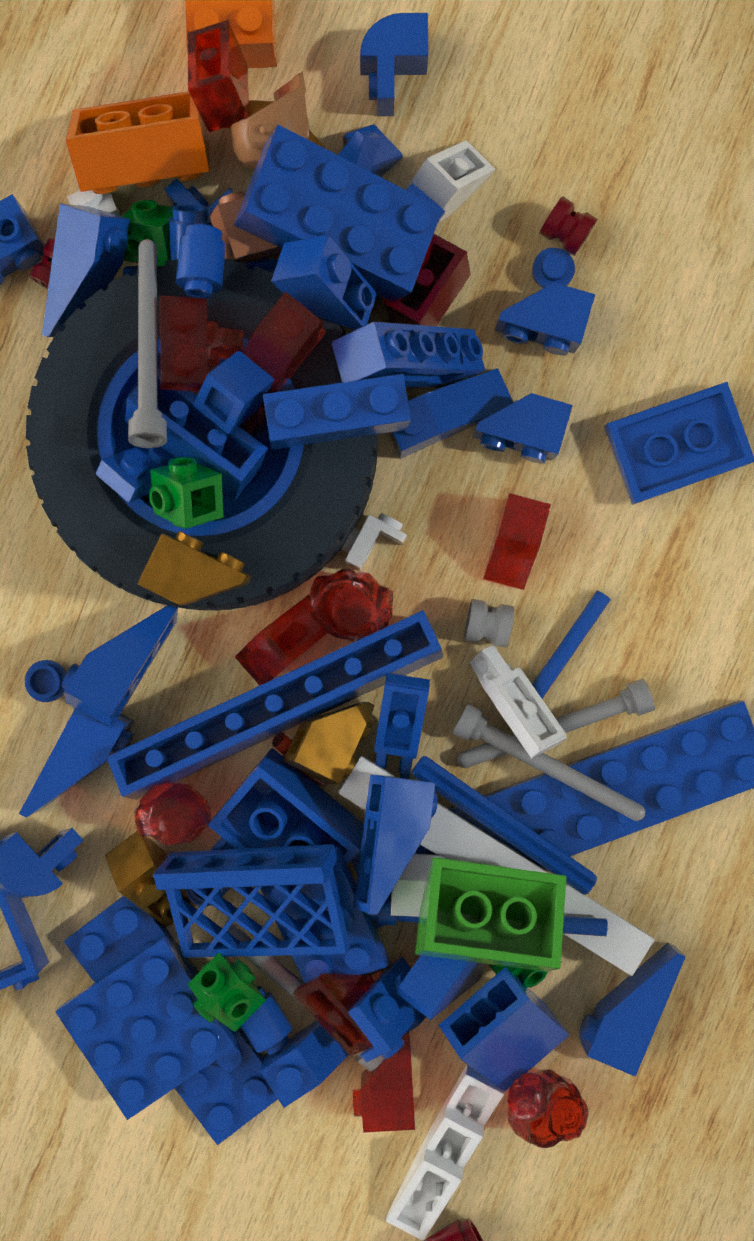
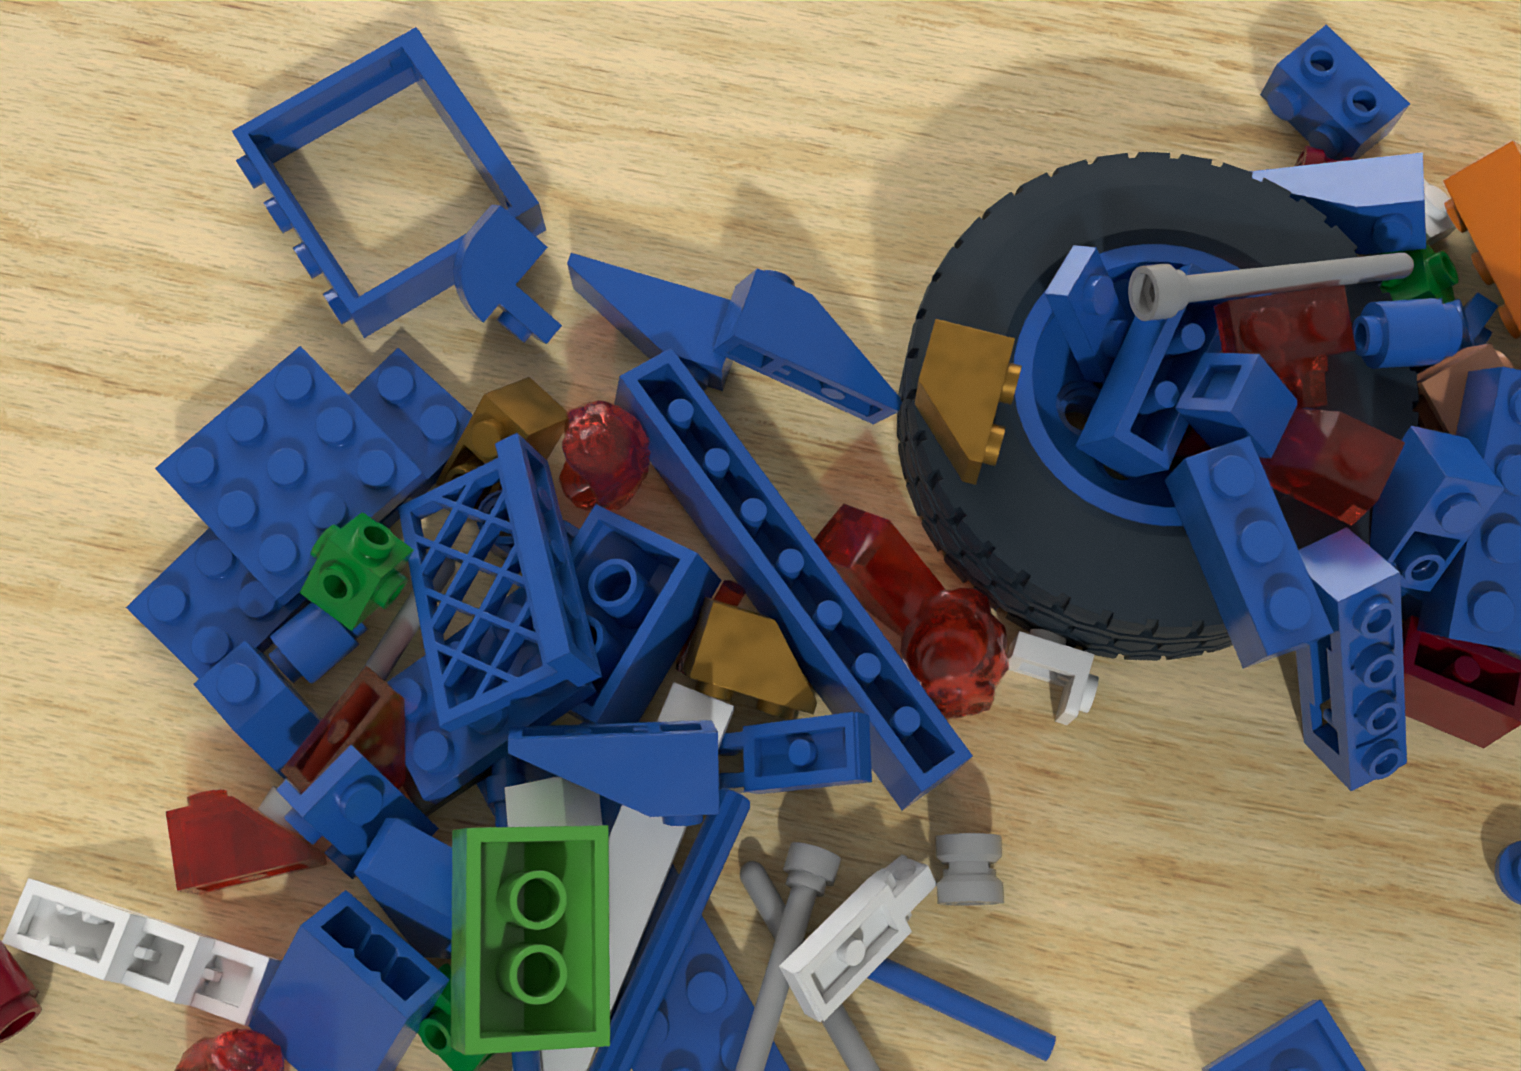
camera: 80 degrees right, 15 degrees down
(45, 680) = (755, 253): blue plate -> none
(186, 493) = (1076, 367): green brick -> none
(451, 410) = (1272, 750): blue slope -> none
(516, 541) = (1105, 889): clear red slope -> none
(528, 425) = (1283, 873): blue slope -> none
(548, 317) = (1455, 876): blue slope -> none

